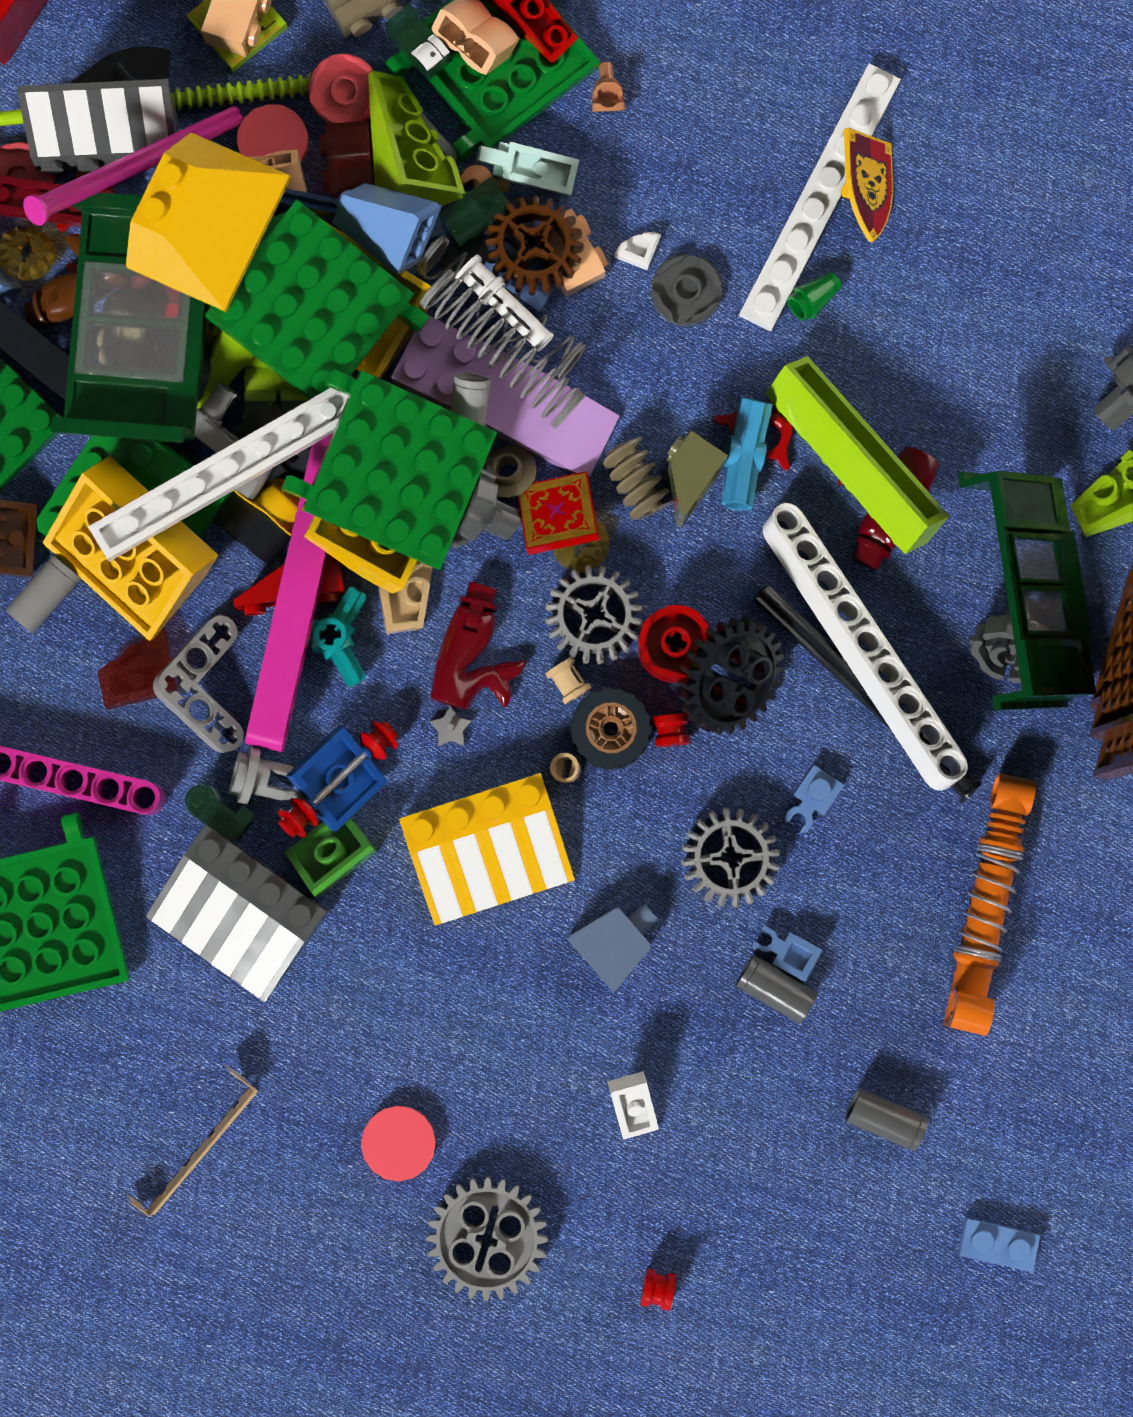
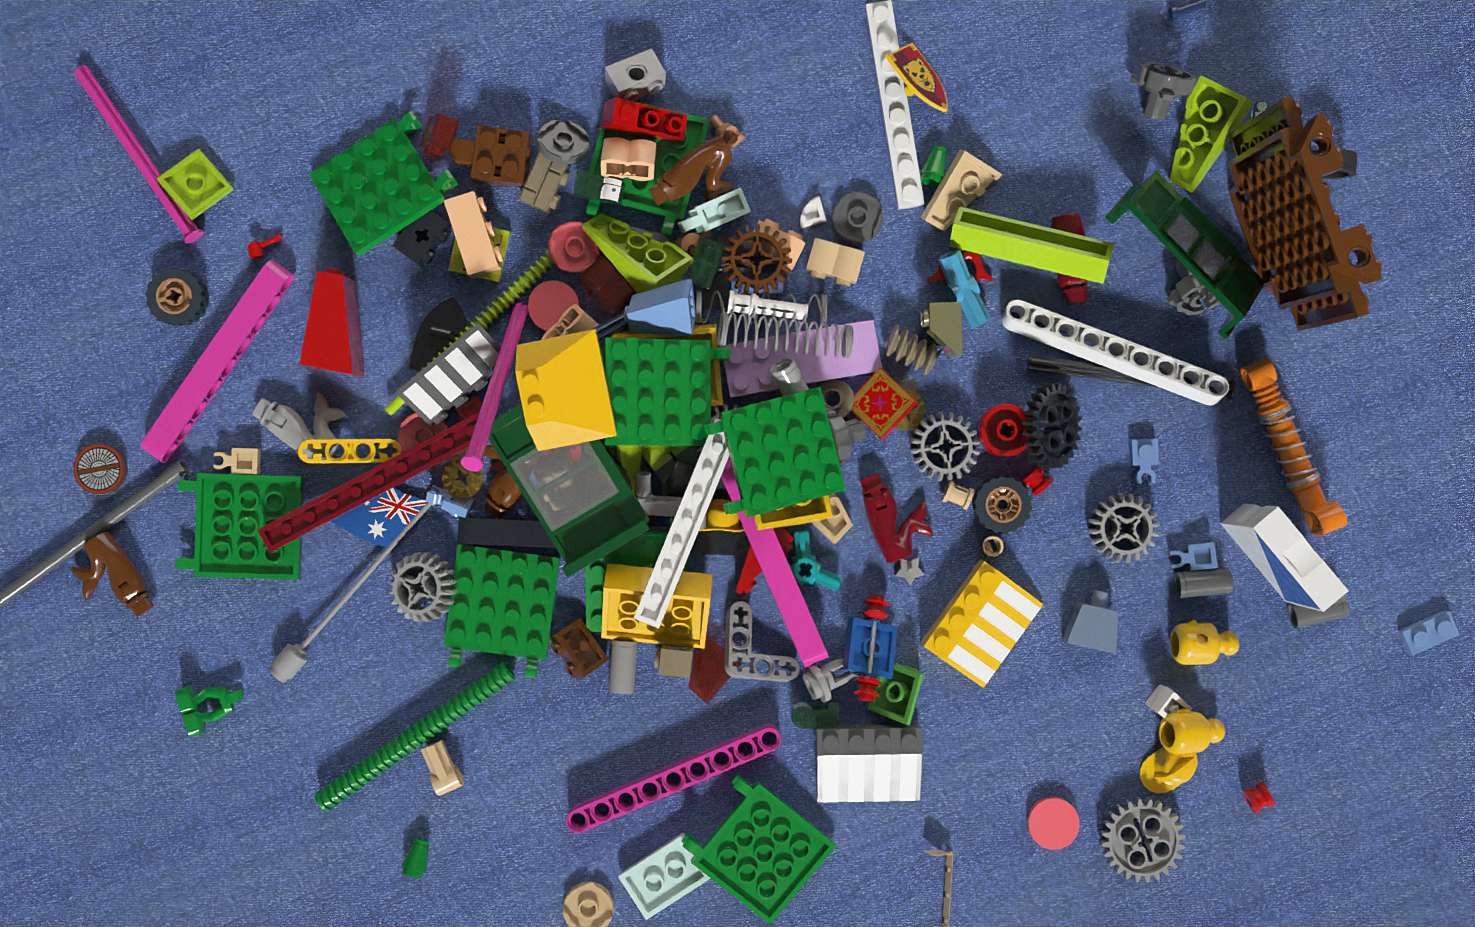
camera: 30 degrees left, 5 degrees up
(105, 627) = (674, 660): none -> dark tan brick
(529, 96) = (687, 172): none -> reddish brown piece
(581, 1178) = (1166, 771): none -> yellow piece
(623, 318) = (834, 262): none -> tan brick
(632, 1149) = (1189, 732): none -> yellow piece
(721, 1055) = (1201, 643): none -> yellow piece
(828, 337) = (959, 187): none -> tan wing
(886, 1015) = (1284, 556): none -> white tile

